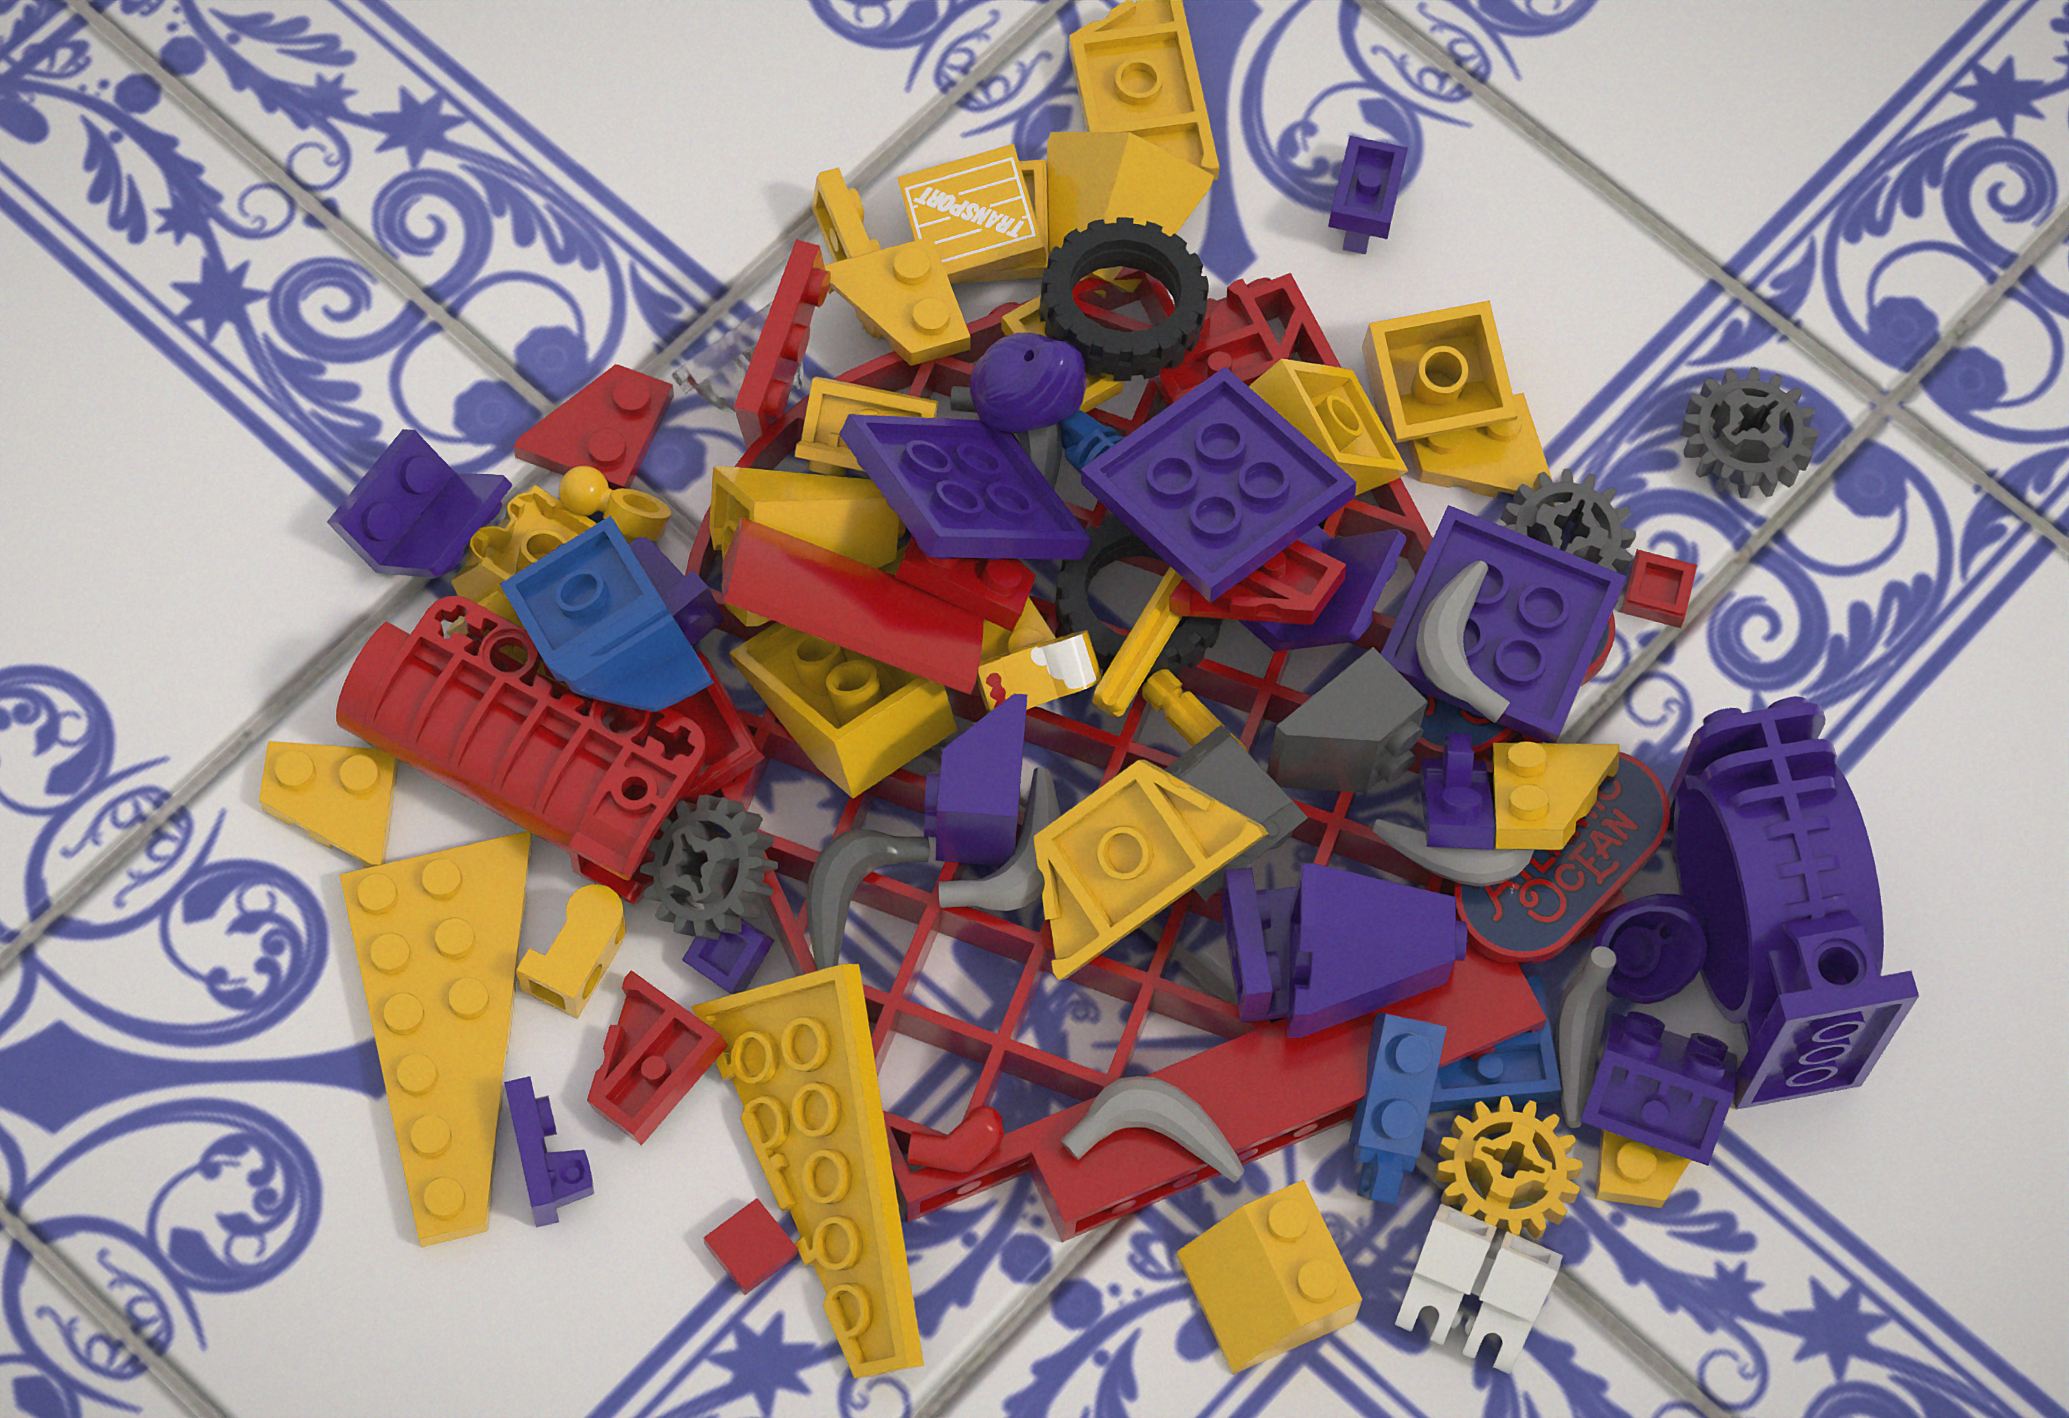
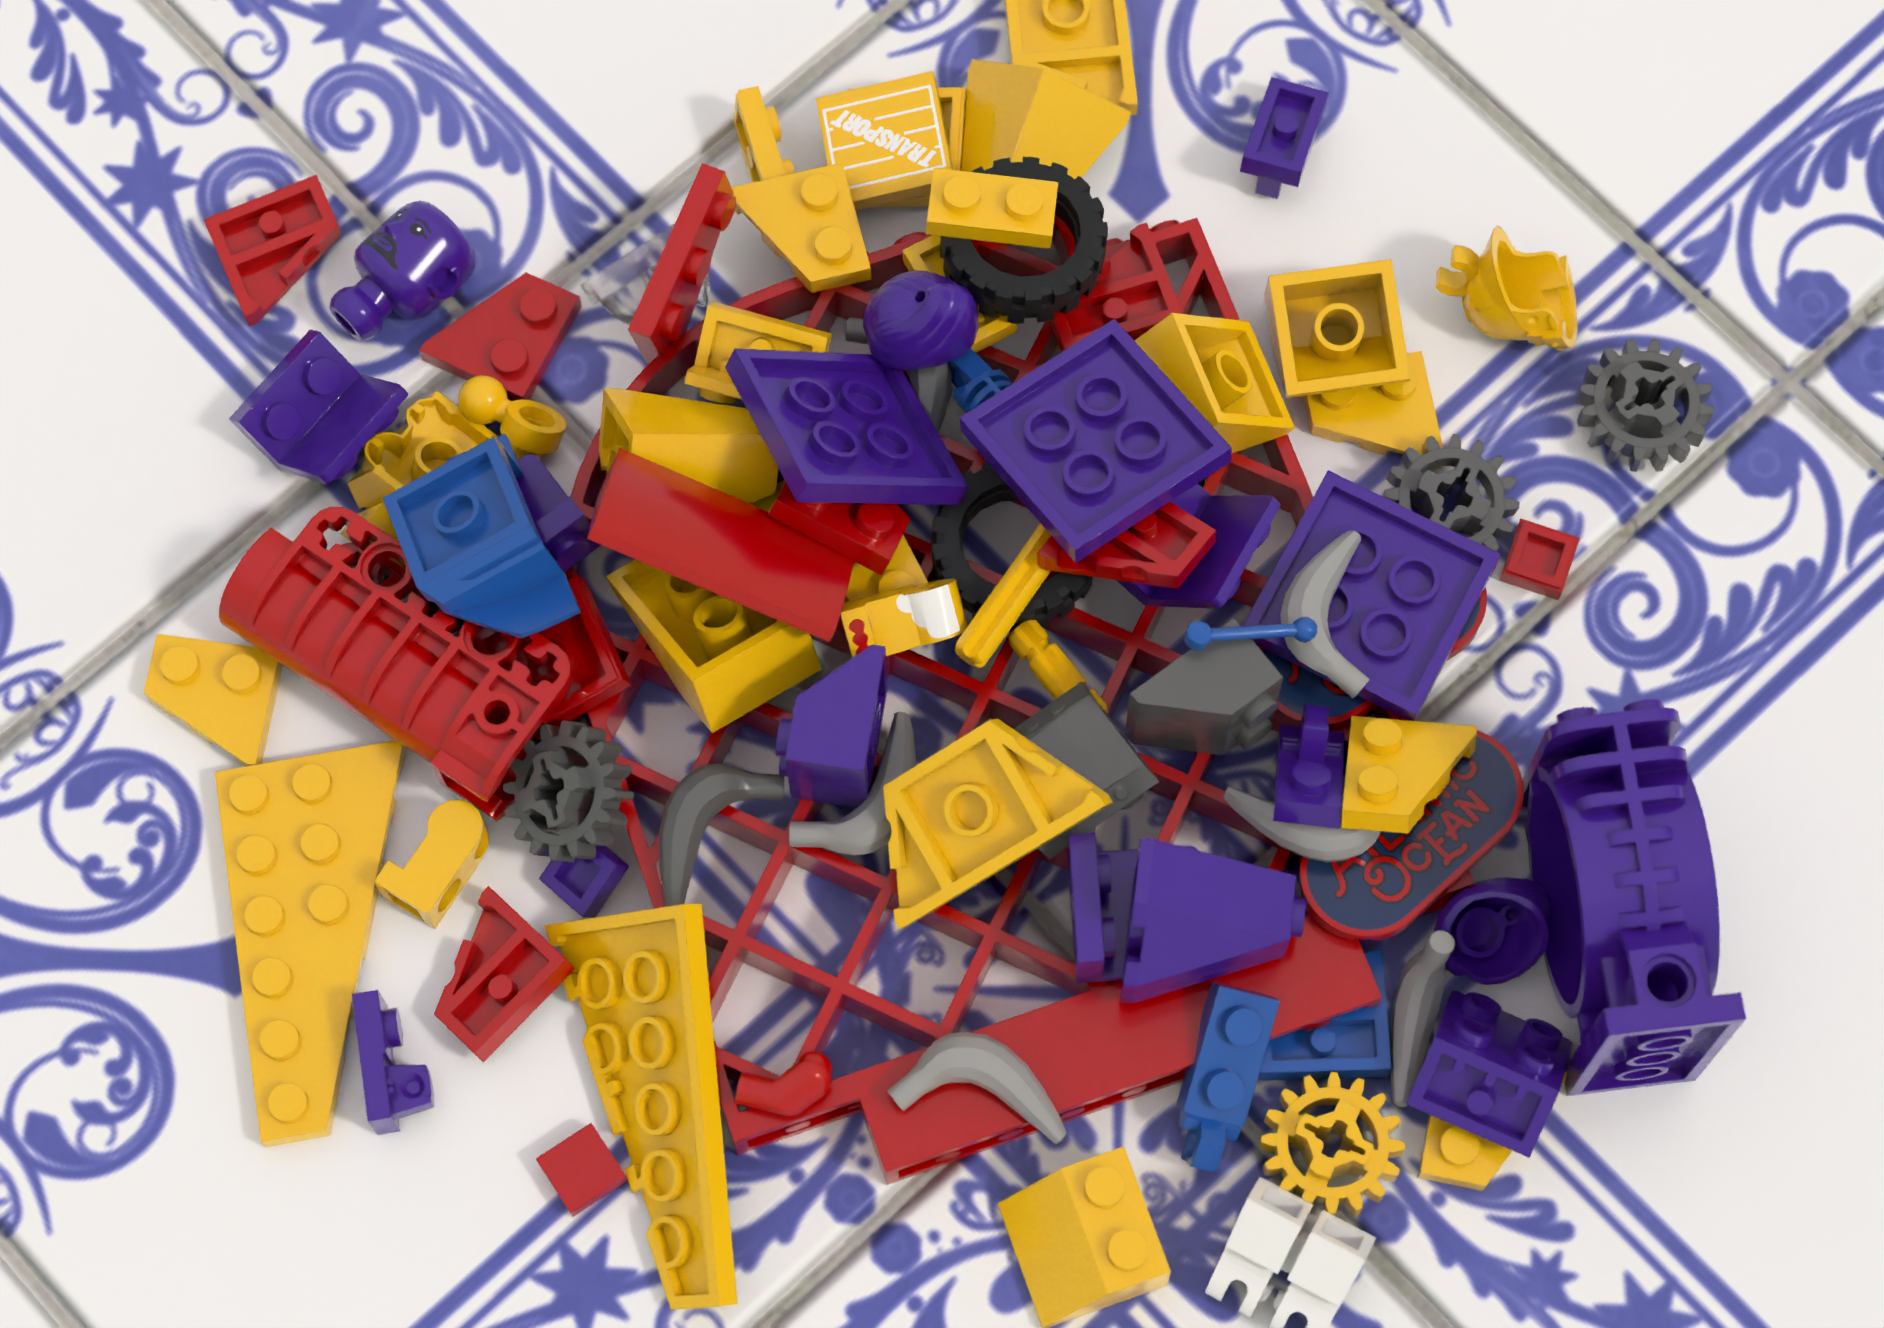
camera: 10 degrees right, 5 degrees up
(354, 348) = (273, 243): none -> red wing
(493, 367) = (404, 269): none -> dark purple piece
(1092, 267) = (991, 208): none -> yellow plate
(1342, 662) = (1200, 634): none -> blue hinge
(1609, 330) = (1514, 292): none -> yellow helmet

